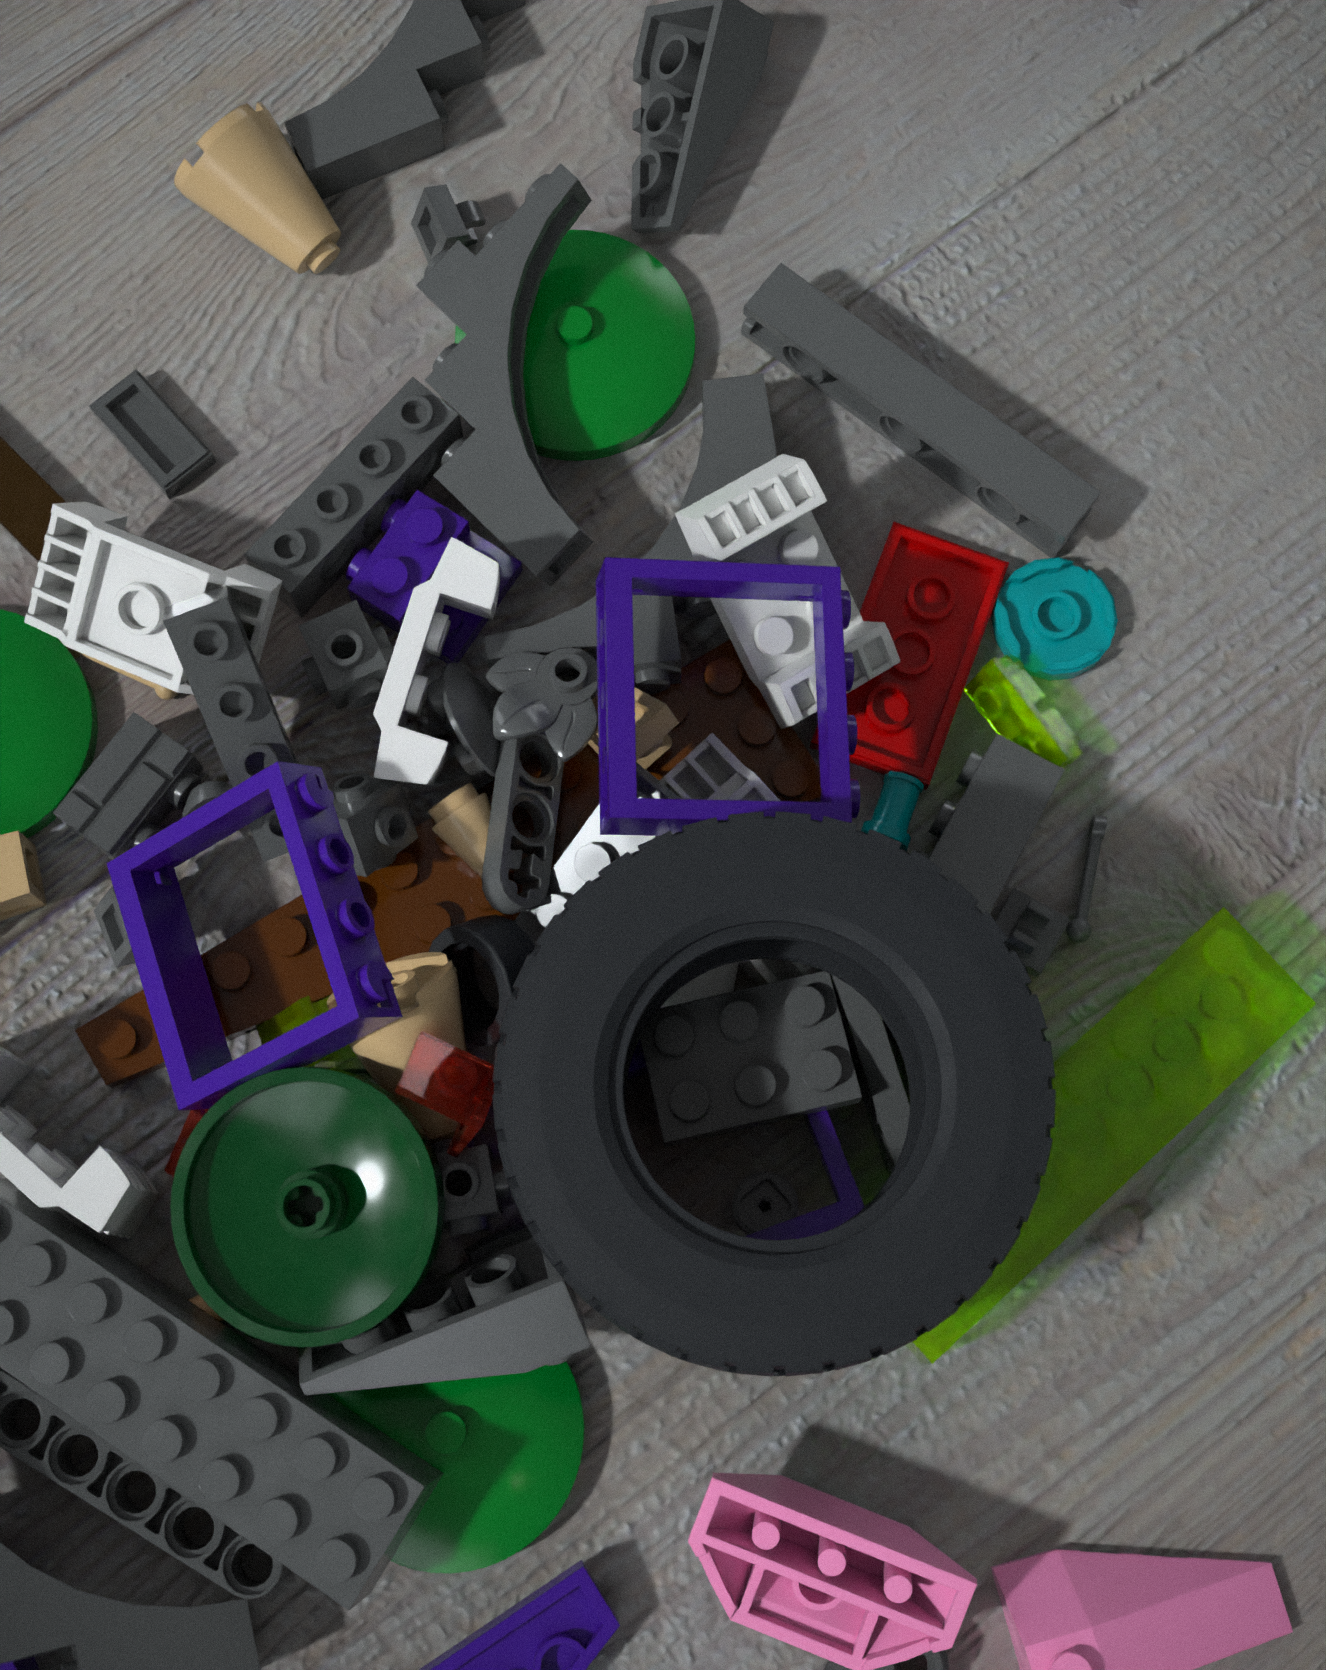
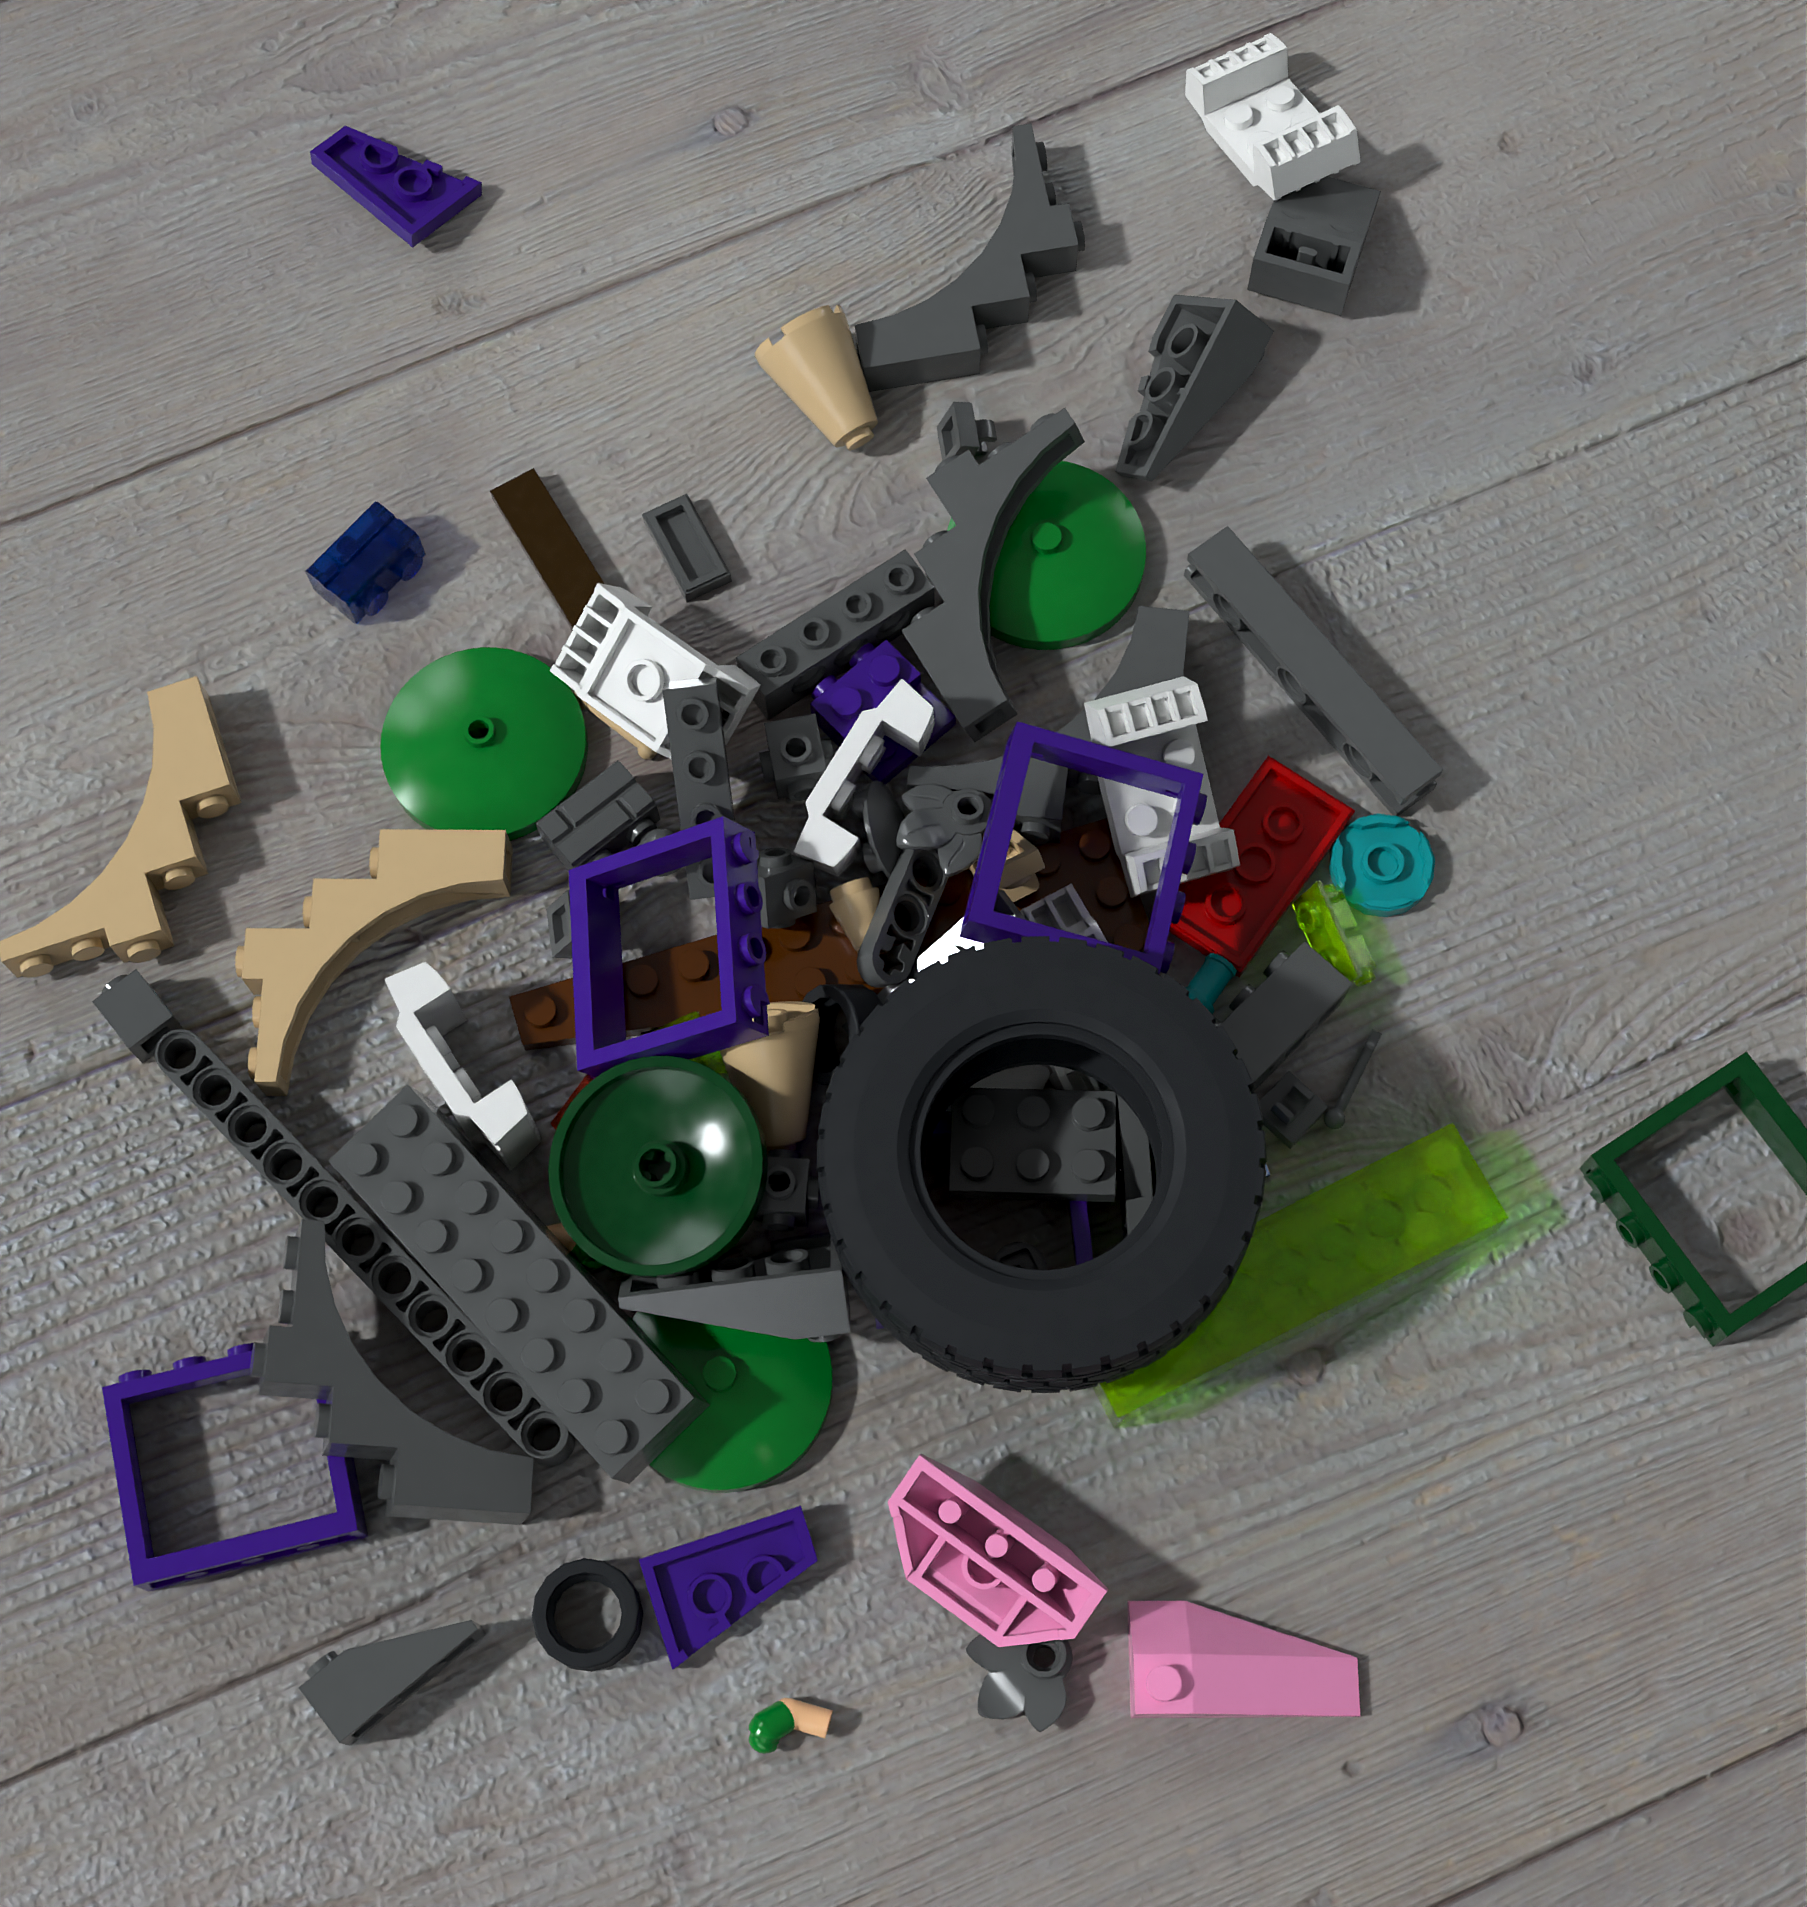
camera: 20 degrees right, 5 degrees down
(449, 1084) = (792, 1098): clear red bracket -> none

